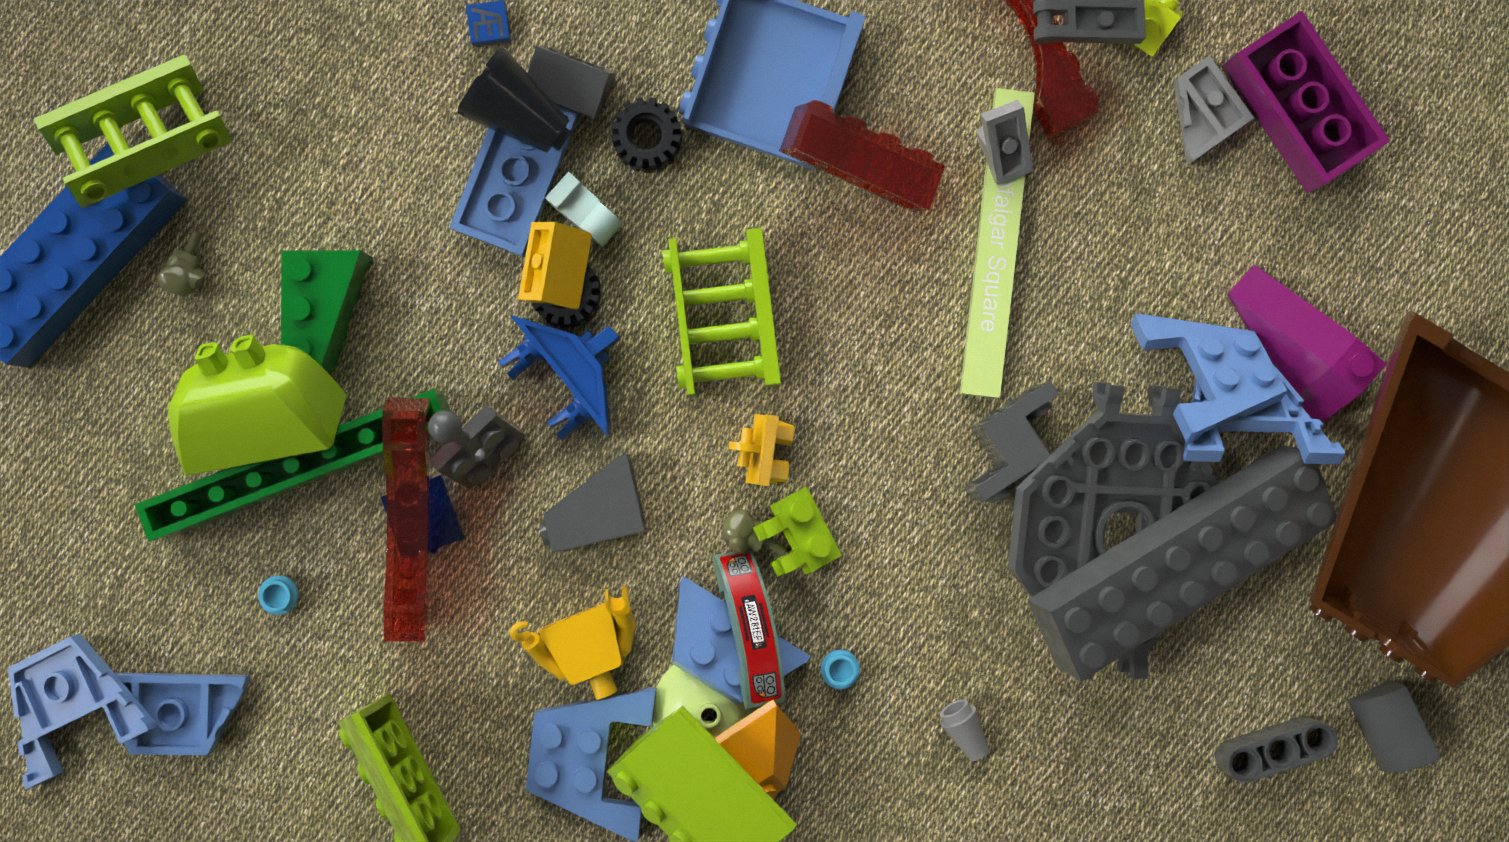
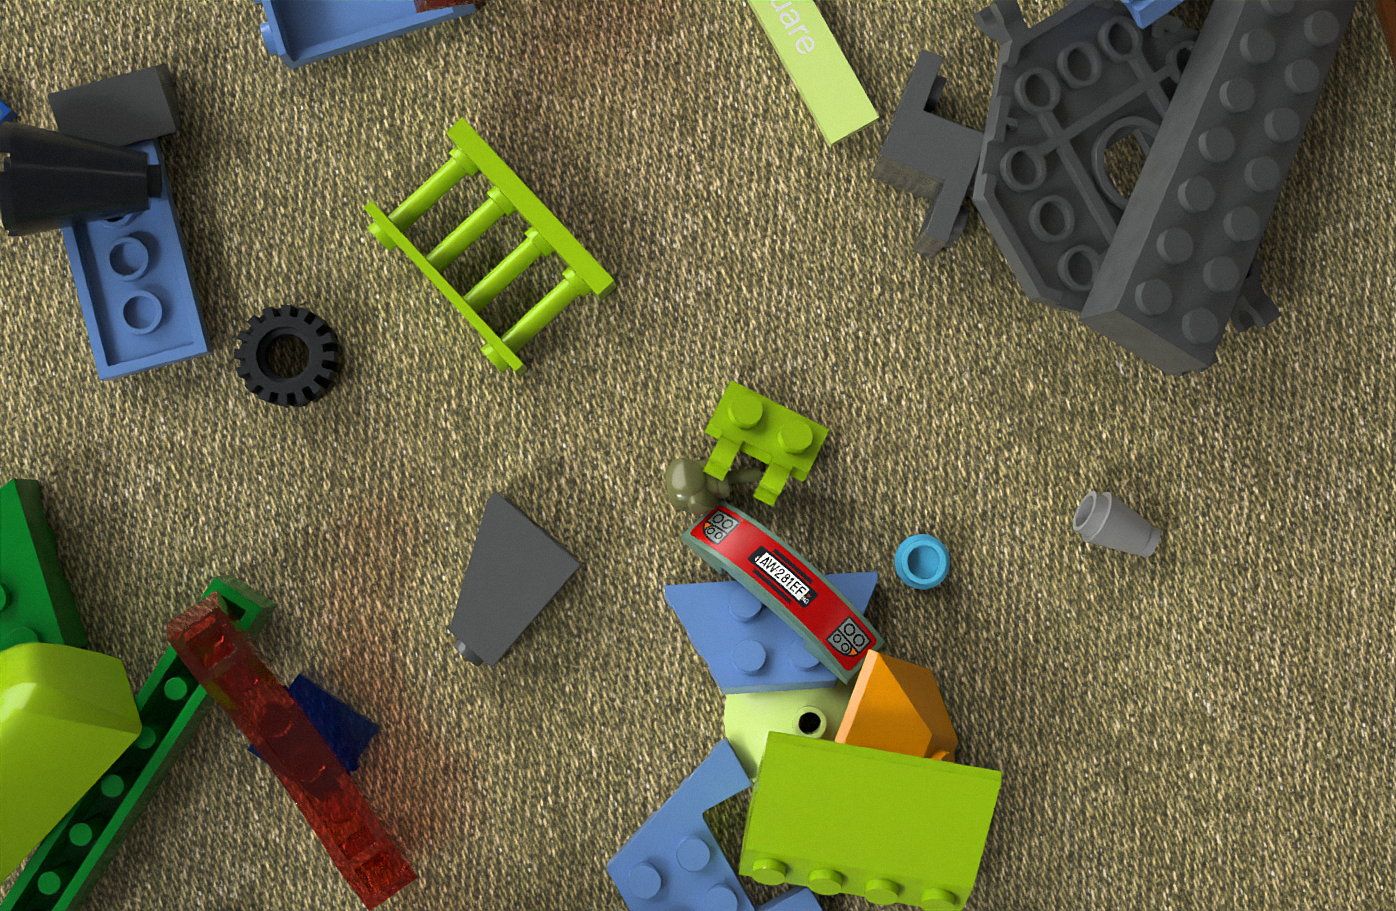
camera: 30 degrees left, 0 degrees up
(474, 448) = (313, 609): dark grey plate -> none
(555, 264) = (252, 331): yellow panel -> none
(576, 362) = (361, 428): blue connector -> none
(583, 209) = (241, 247): light aqua leg -> none
(584, 644) = (606, 745): yellow torso -> none
(646, 112) = (226, 89): black tyre -> none
(758, 447) = (643, 375): yellow hips -> none

